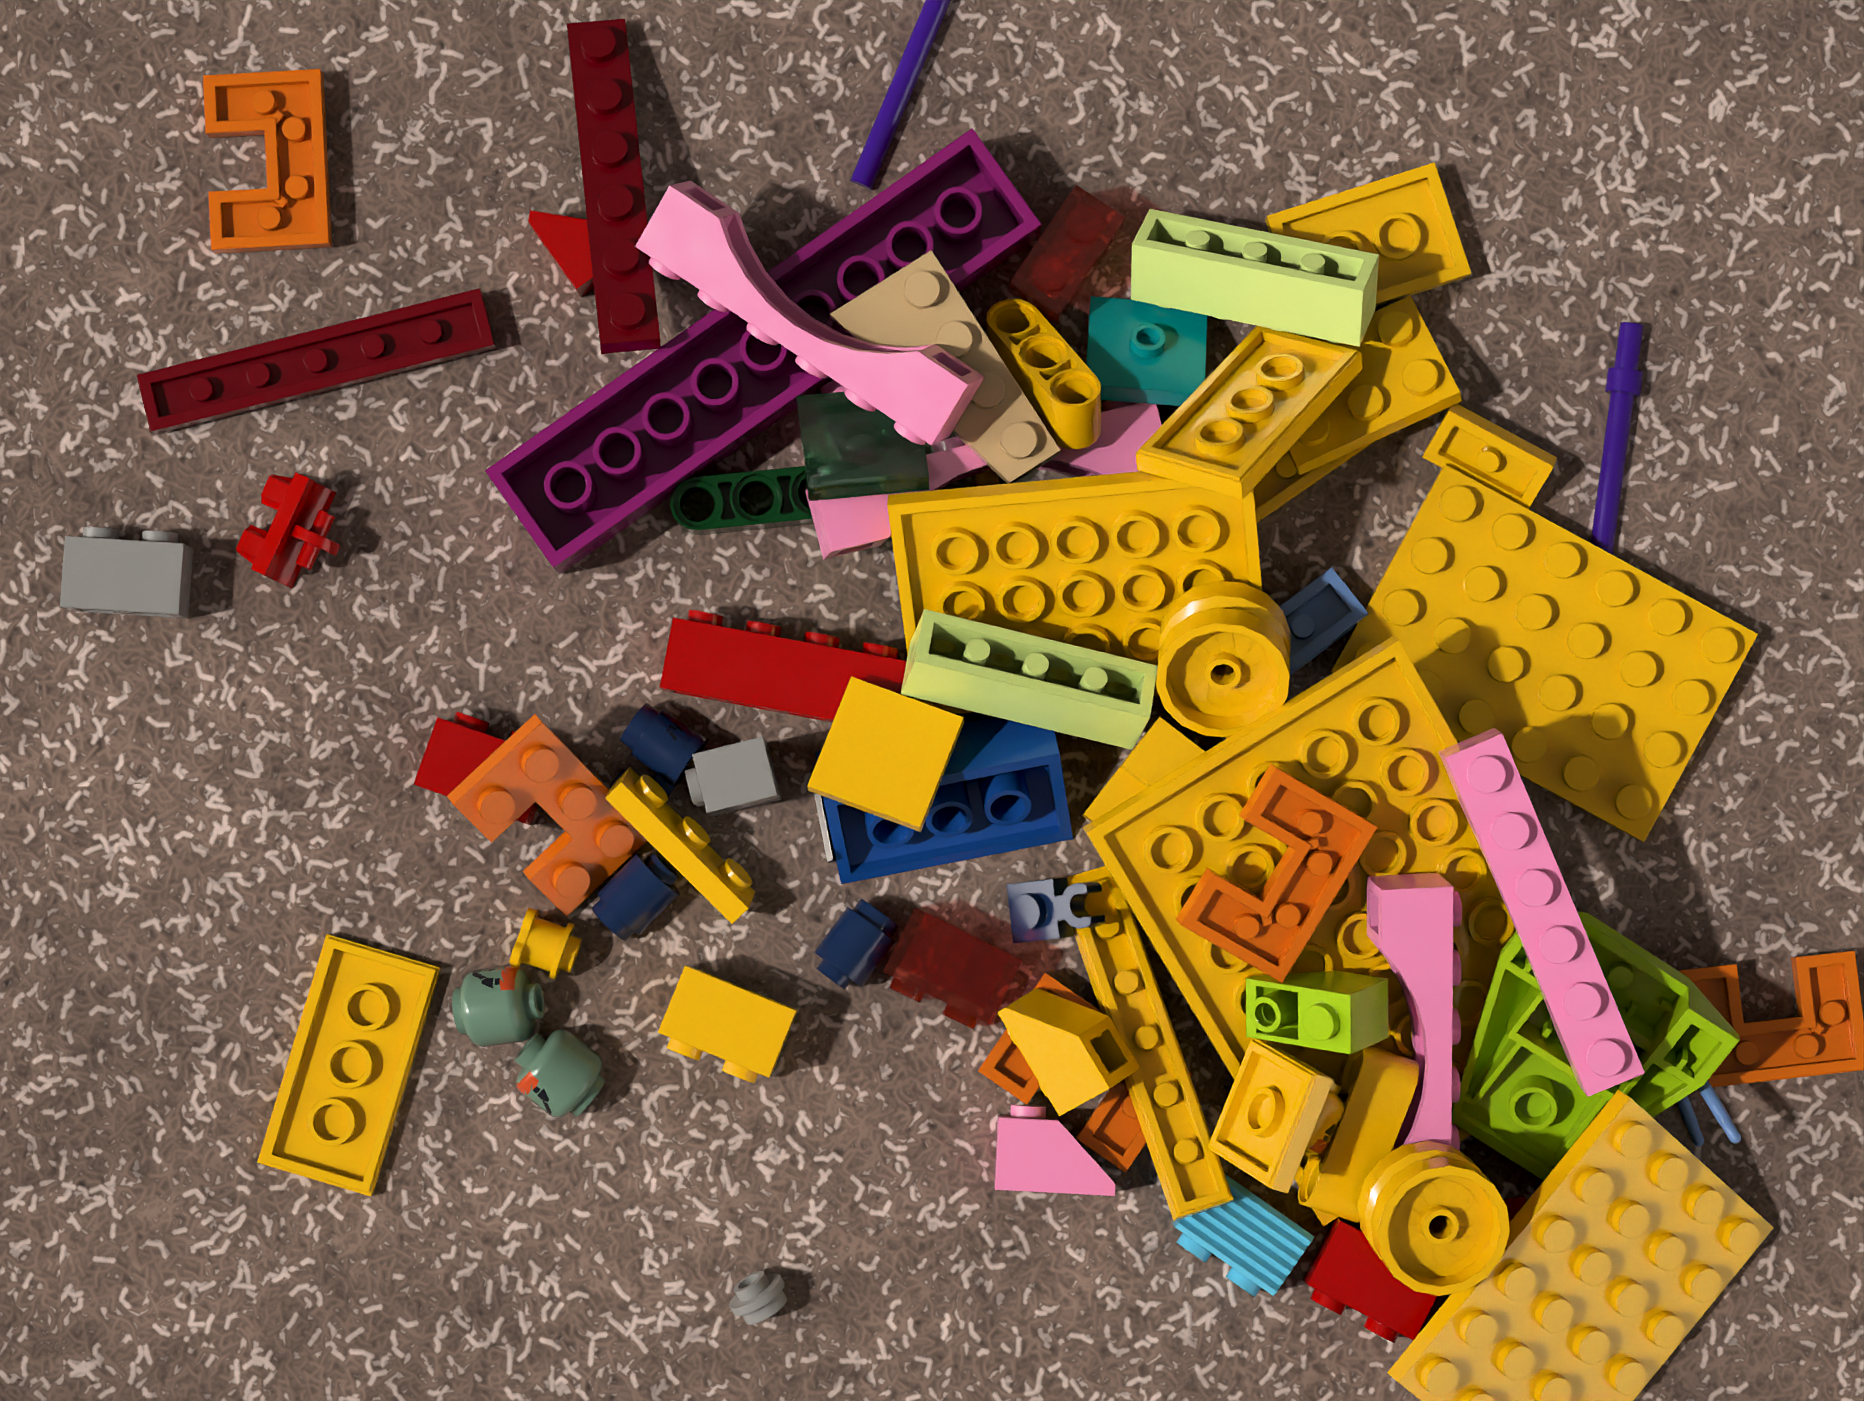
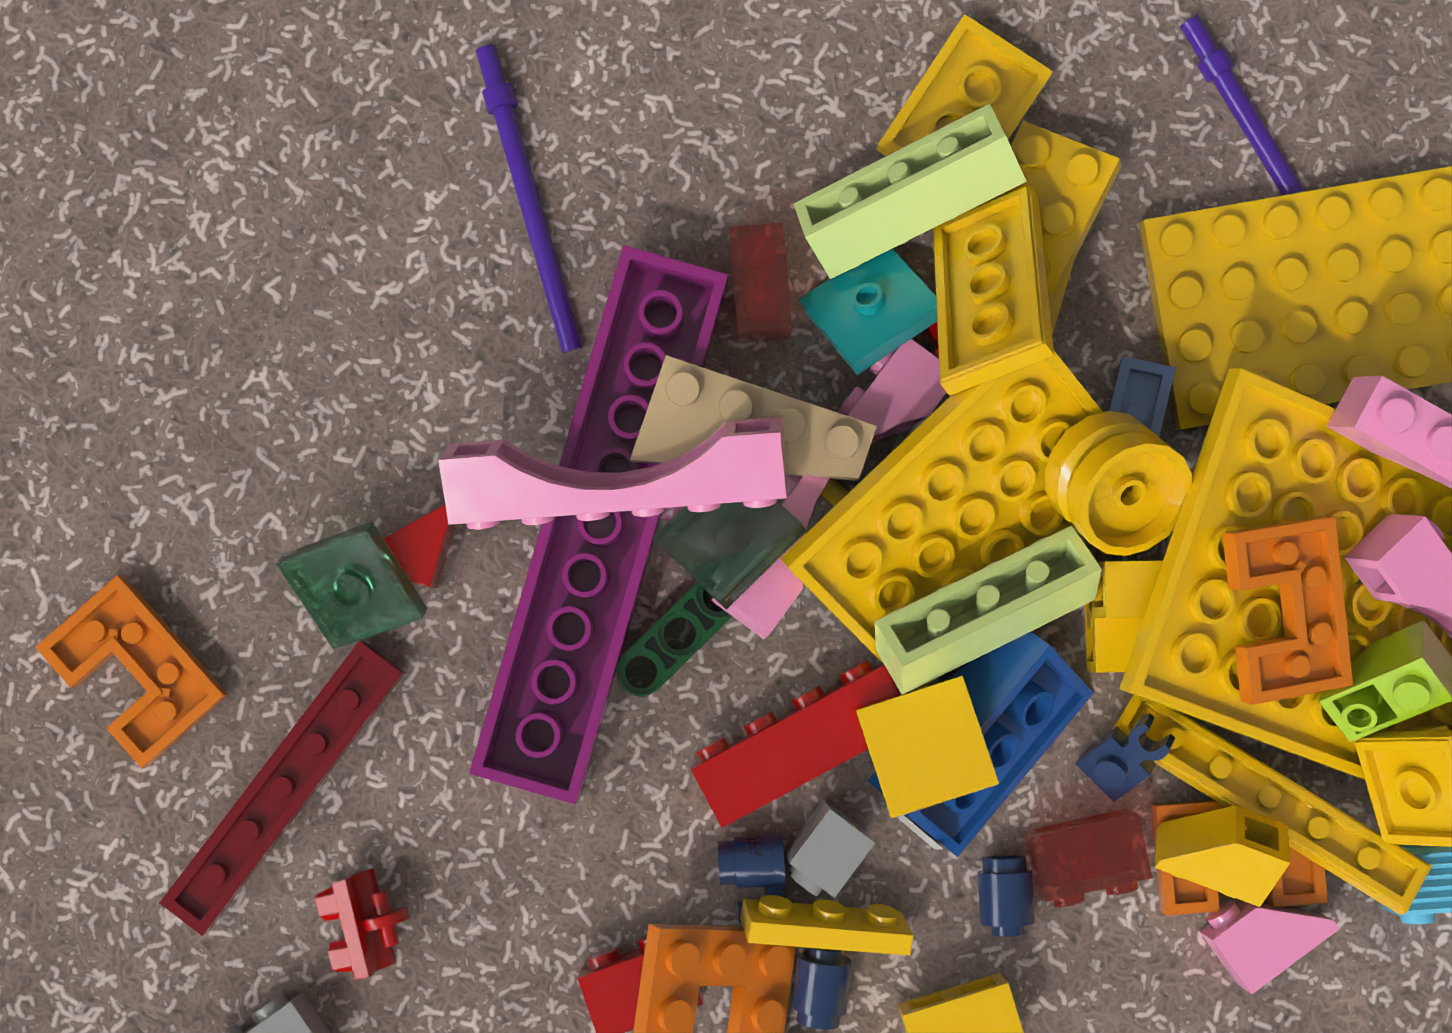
camera: 45 degrees left, 0 degrees up
(511, 236) = (352, 585): none -> clear green tile
(613, 186) = (398, 493): dark red plate -> none
(1047, 372) = (820, 376): yellow beam -> none
(1490, 455) = (1169, 189): yellow plate -> none

